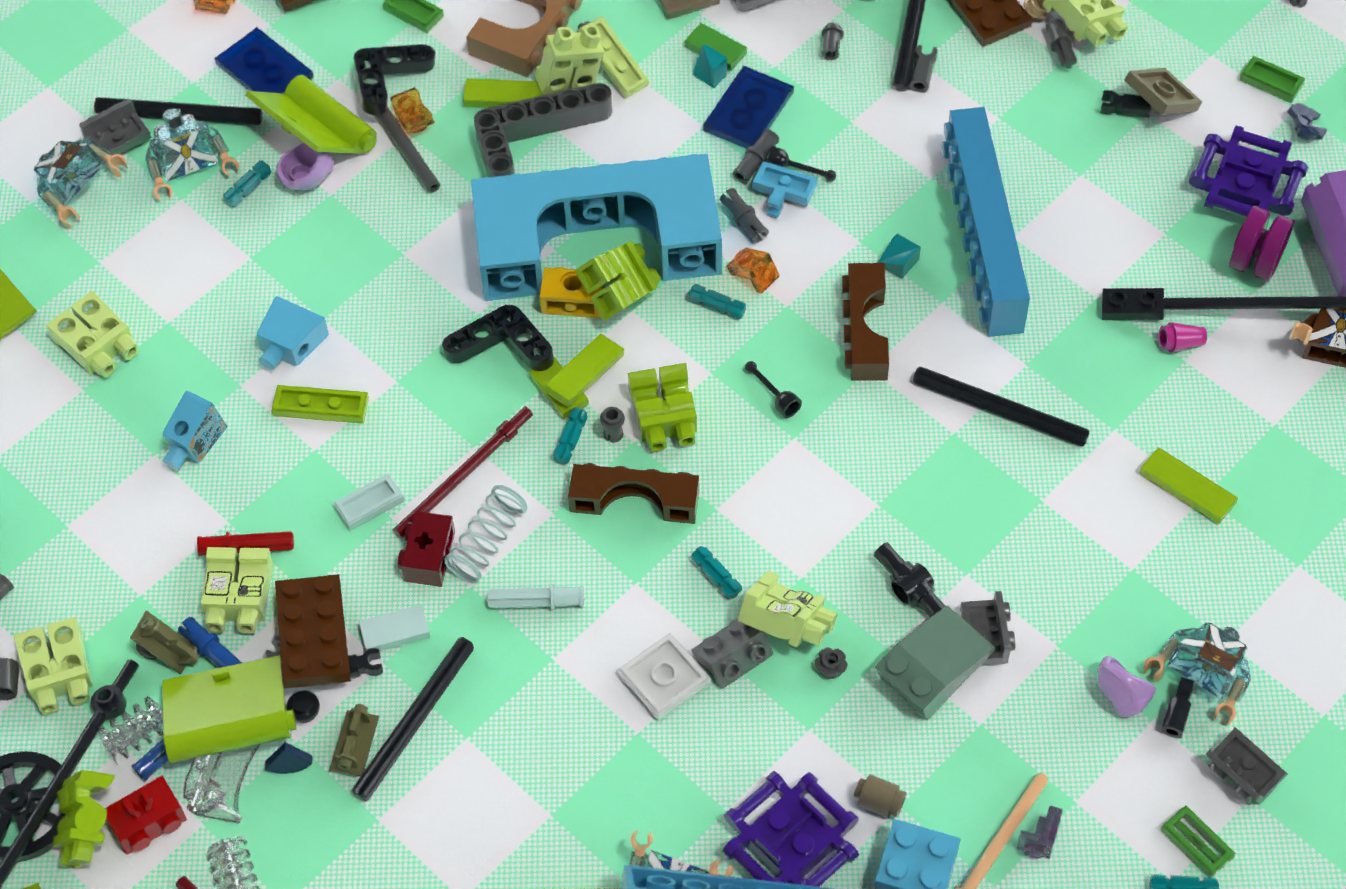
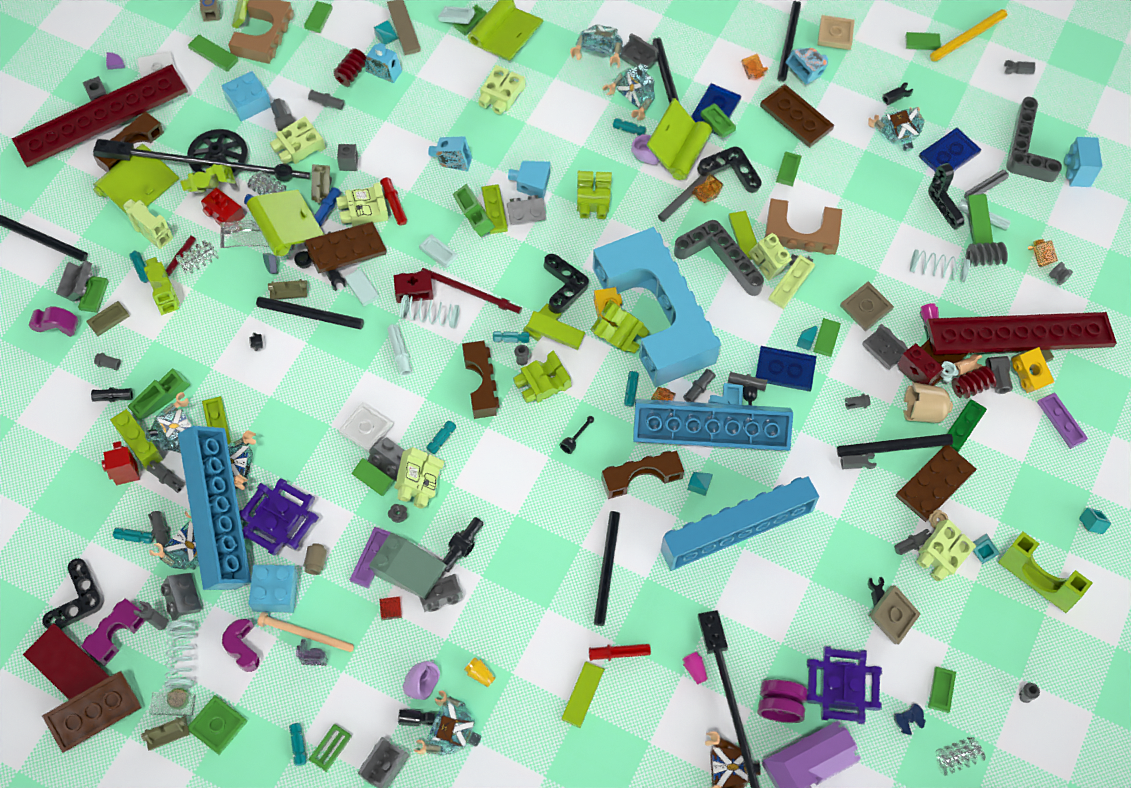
camera: 70 degrees right, 5 degrees up
(126, 591) = (347, 157): none -> dark grey brick
(295, 62) = (718, 120): none -> bright green plate
(315, 429) = (473, 210): none -> bright green slope
(344, 357) = (526, 210): none -> flat silver bracket
(357, 259) = (591, 200): none -> lime hips
(442, 810) = (256, 341): none -> black plate
(757, 684) = (372, 476): none -> bright green tile
(820, 210) = (712, 424): none -> dark azure brick
(895, 718) = (362, 573): none -> medium lavender tile
(989, 709) = (390, 608): none -> clear red tile
(1125, 607) = (478, 671): none -> yellow cone
(1135, 432) = (608, 652): none -> red axle

